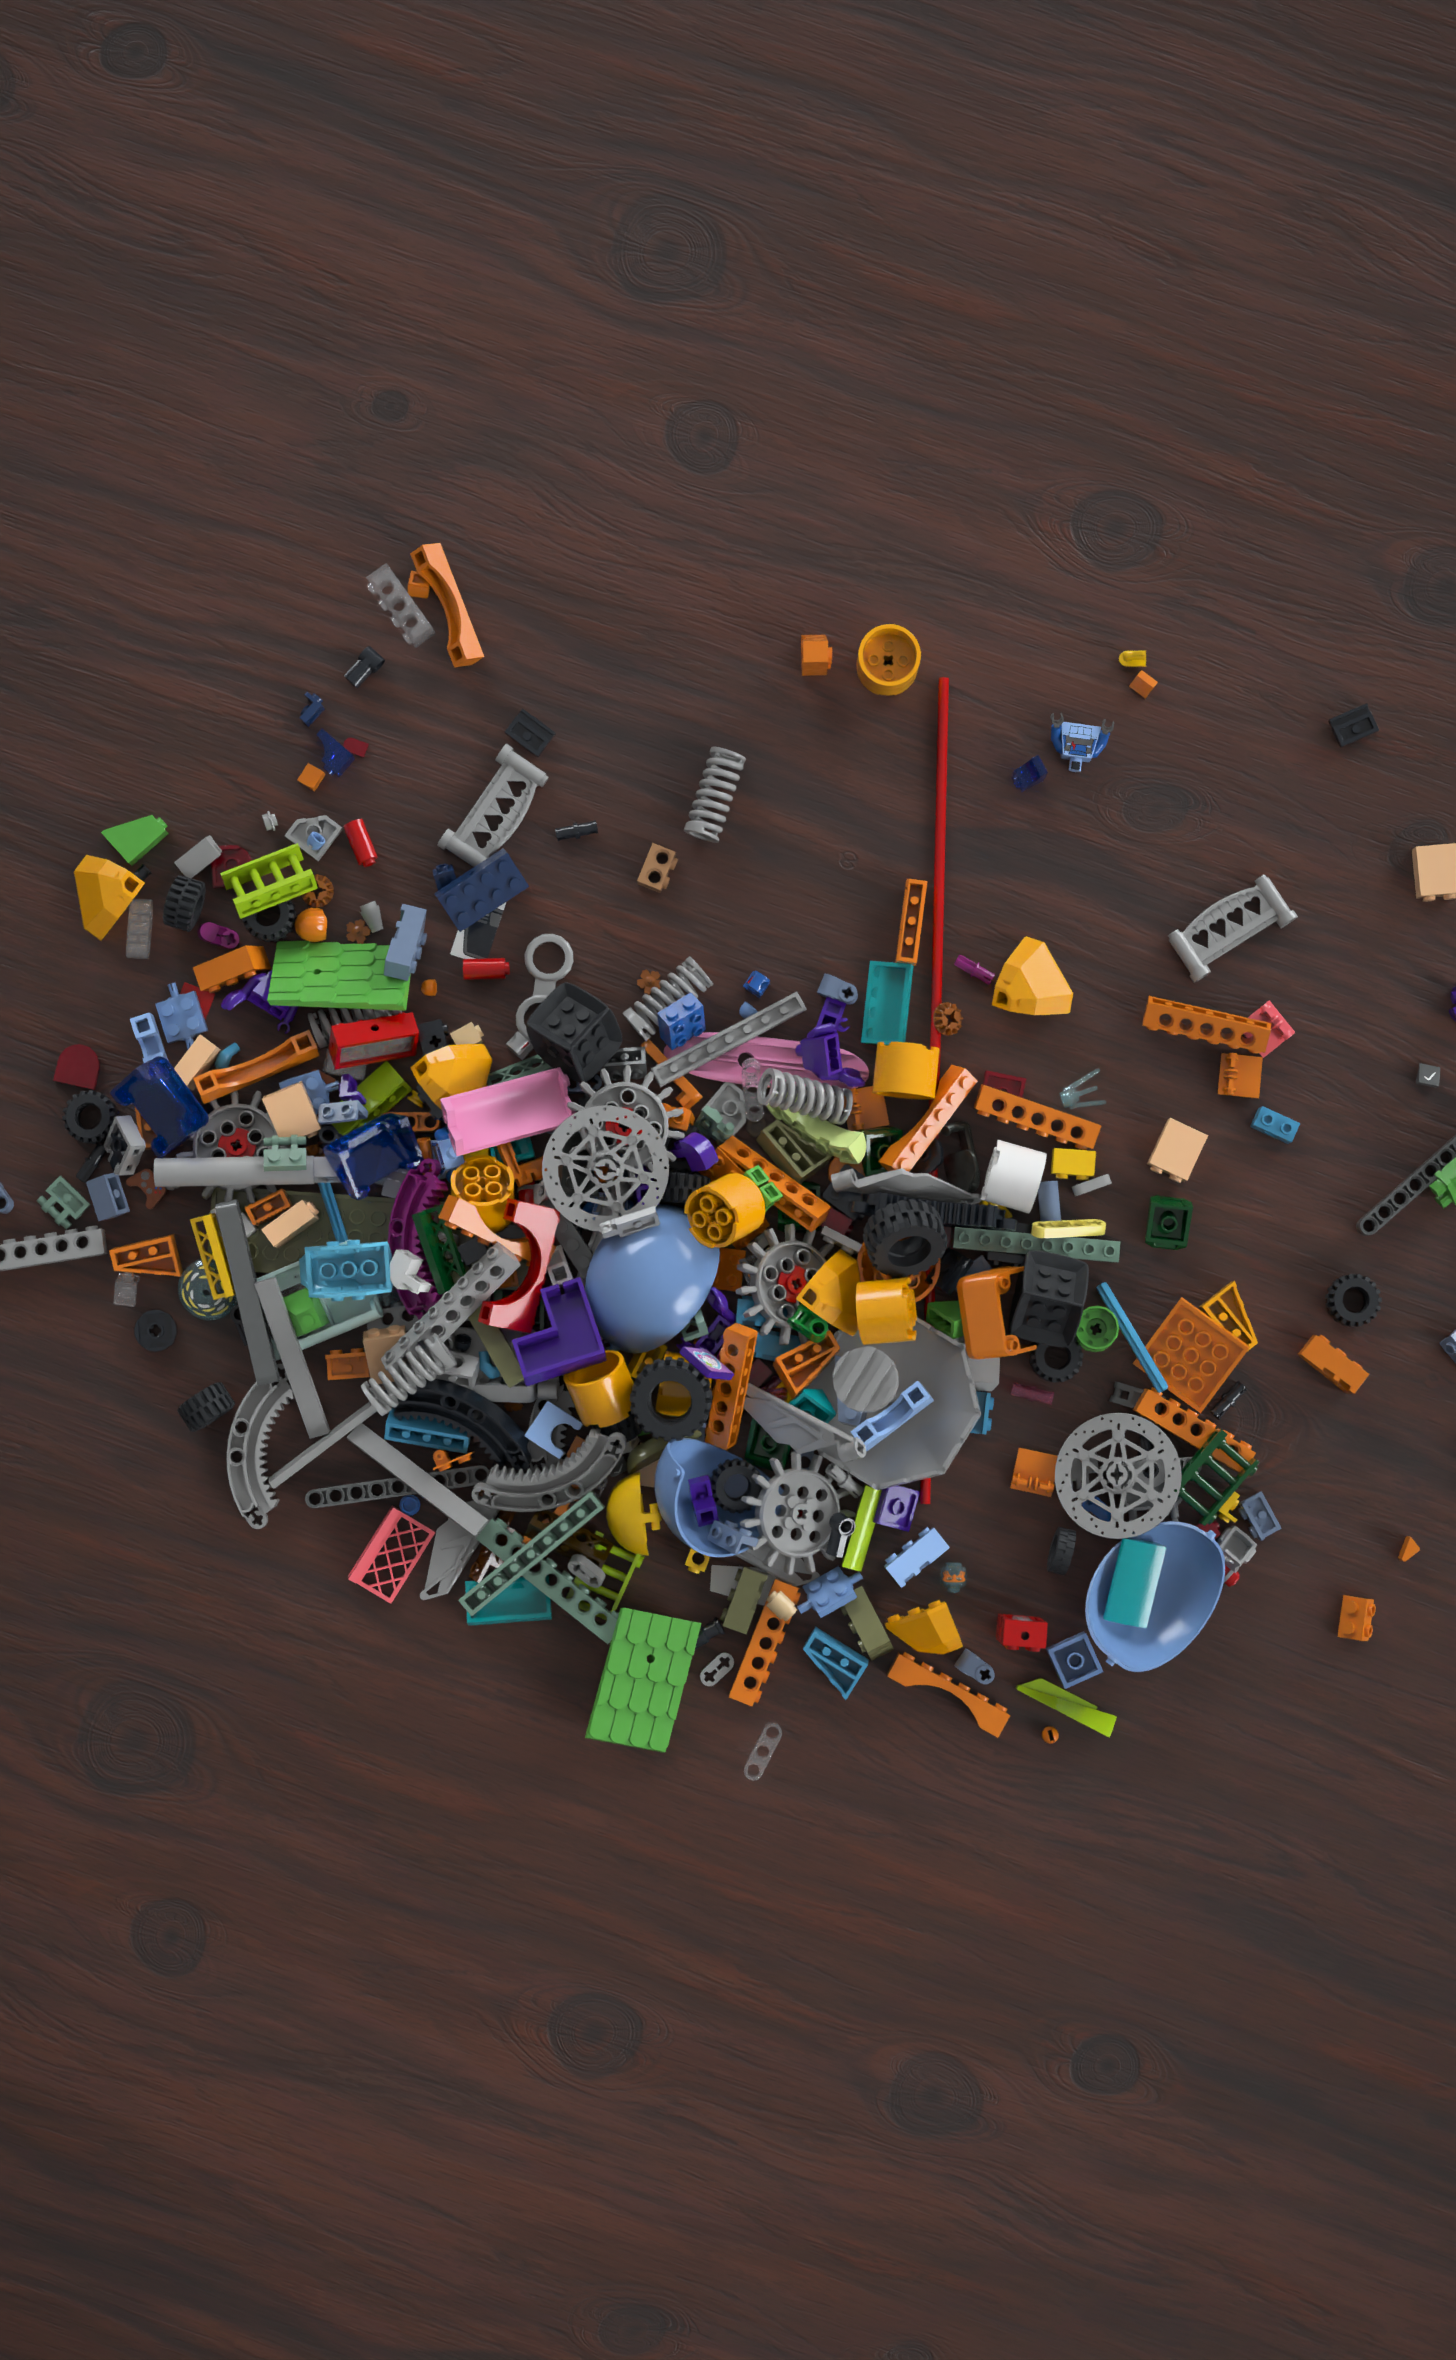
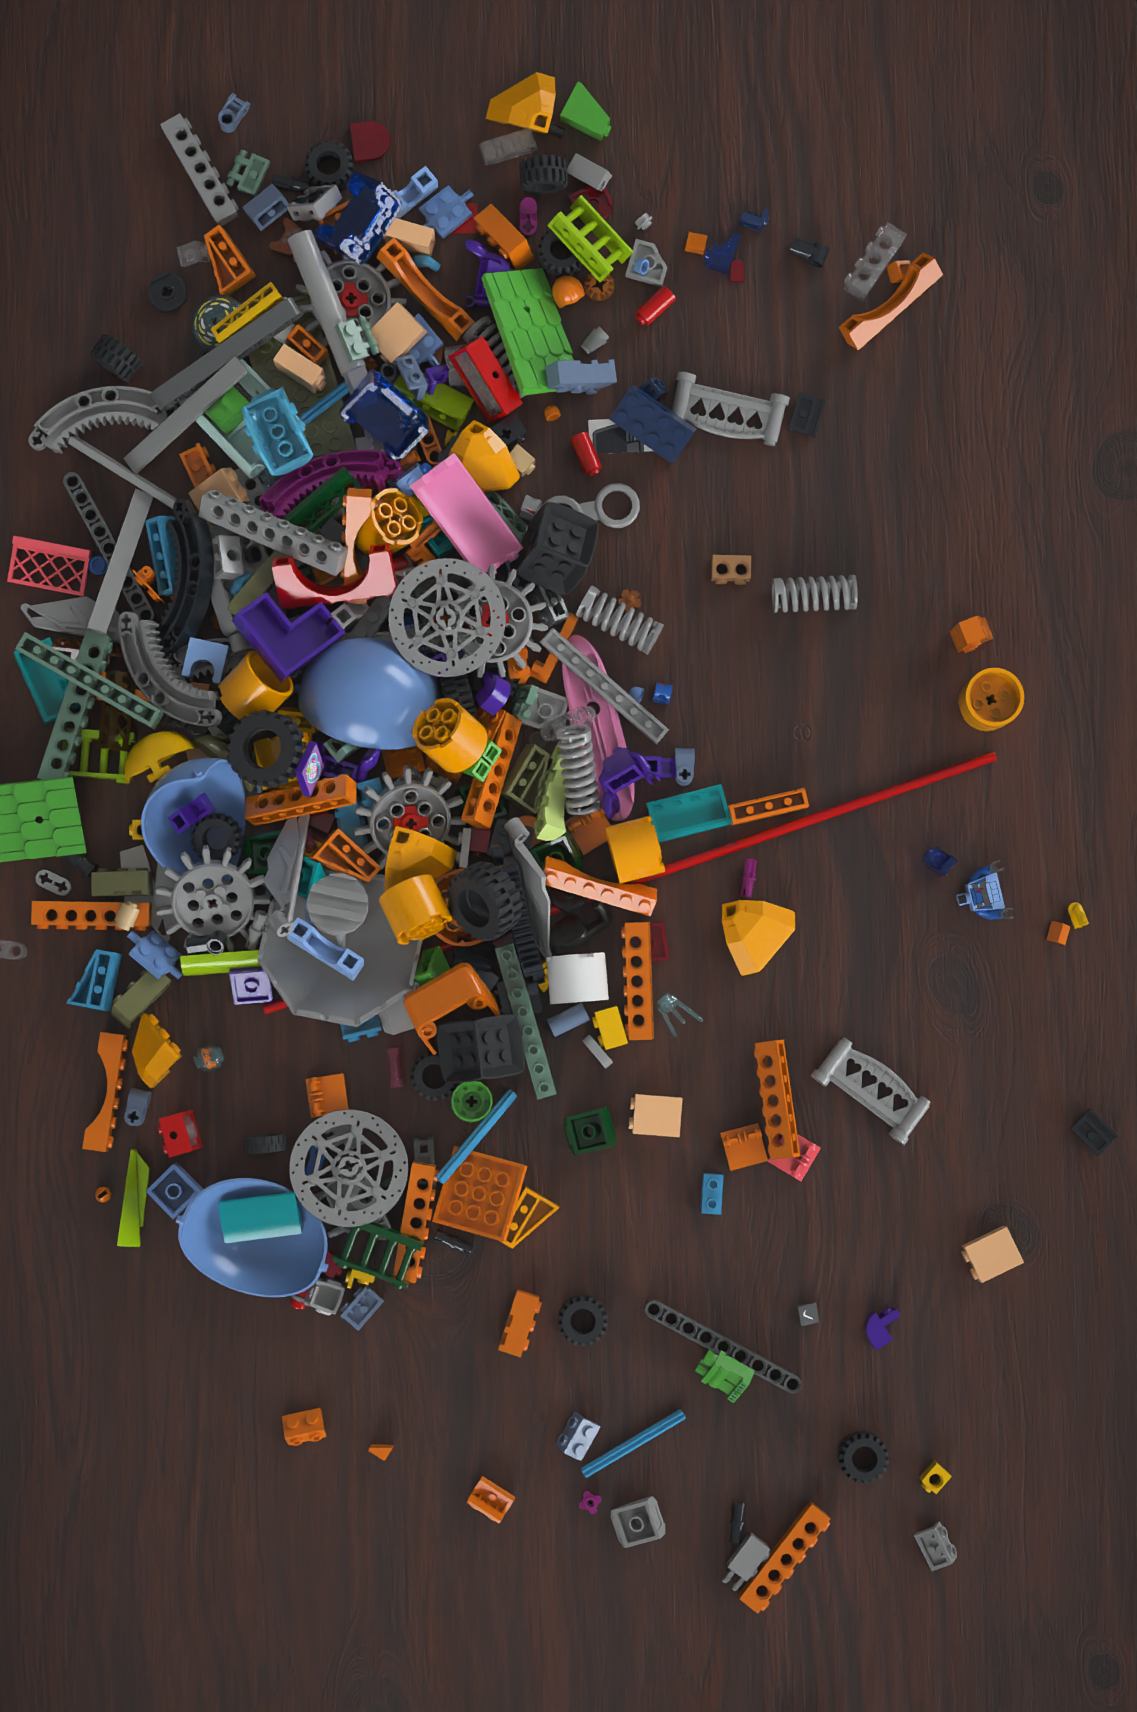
camera: 65 degrees right, 0 degrees up
(357, 931) = (577, 333): dark orange plant -> none
(382, 1401) = (228, 541): light grey piece -> none
(404, 1272) = (291, 480): white brick -> none
(576, 830) = (737, 487): black pin -> none
(586, 1570) = (94, 736): light grey beam -> none
(630, 1223) = (407, 657): light grey hinge -> none
(681, 1021) = (603, 638): blue brick -> none
(730, 1537) = (169, 846): sand blue bracket -> none
(807, 1322) = (379, 842): green piece -> none
(916, 1556) = (214, 1018): light blue wedge -> none
(940, 1020) = (691, 865): dark orange gear -> none
(1068, 1228) = (550, 1044): light yellow beam -> none

